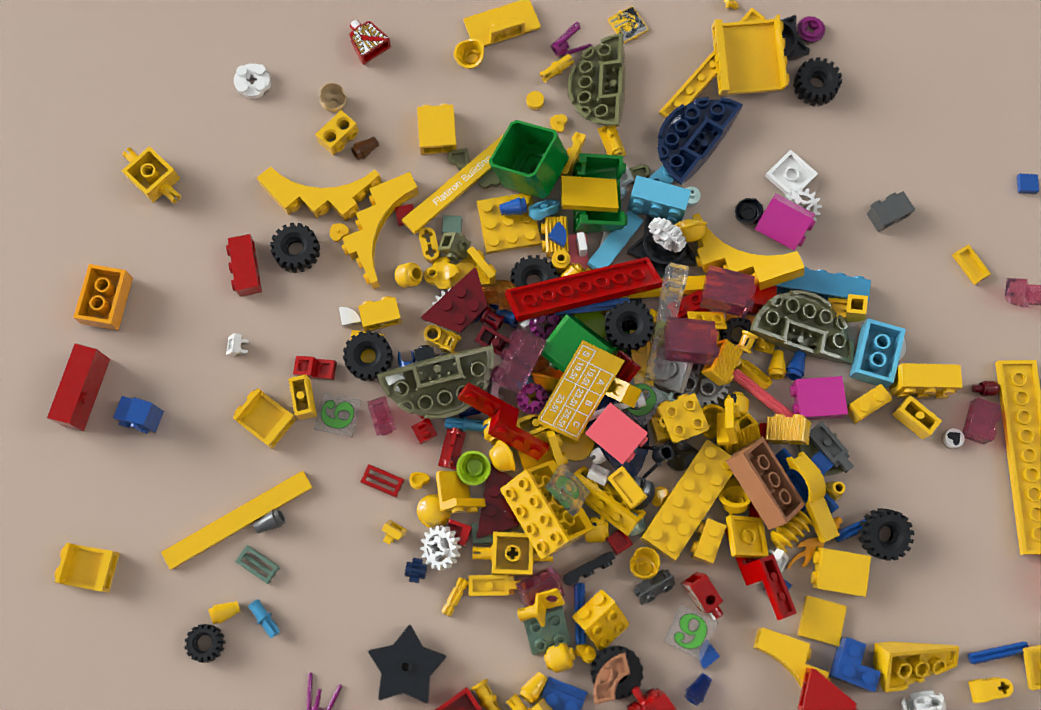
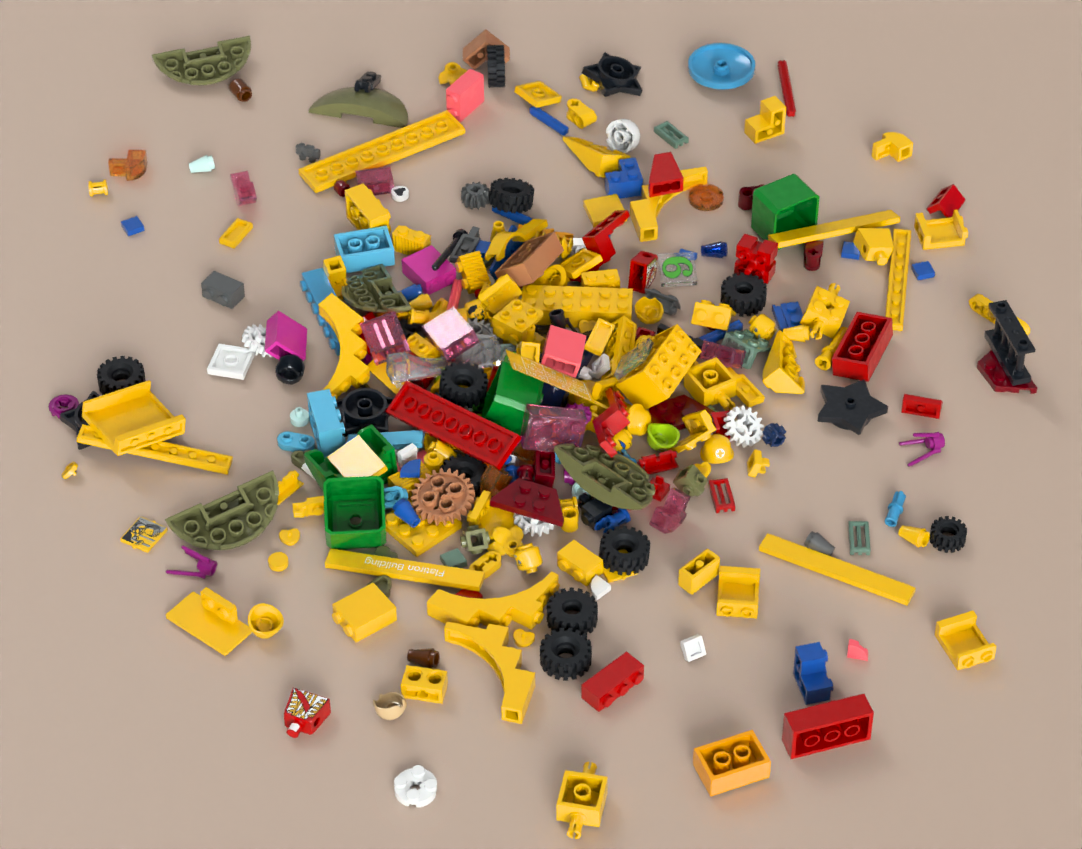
camera: 120 degrees left, 30 degrees down
(142, 472) = (856, 651): none -> coral tile
(315, 368) = (664, 586): red slope -> none
(336, 289) = (572, 600): none -> black tyre
(337, 414) = (688, 546): clear tile -> none
(402, 458) = (690, 481): none -> olive brick
(455, 596) = (772, 407): yellow axle -> none
(492, 637) = (781, 368): none -> yellow wedge
(527, 234) = (443, 496): none -> nougat gear
(539, 608) = (740, 339): yellow bracket -> none
(556, 68) = (232, 559): yellow pin -> none
(586, 652) = (745, 315): yellow piece -> none
(609, 677) = (752, 288): nougat tile -> none
(667, 234) = (362, 389): white gear -> none
(692, 229) = (341, 383): yellow helmet -> none
(693, 134) = (239, 433): dark blue brick -> none
(840, 571) = (560, 209): yellow brick -> none
(854, 452) = (447, 252): none -> black piece
(914, 500) = (475, 195): none -> dark grey gear
(916, 417) = (402, 209): yellow brick -> none

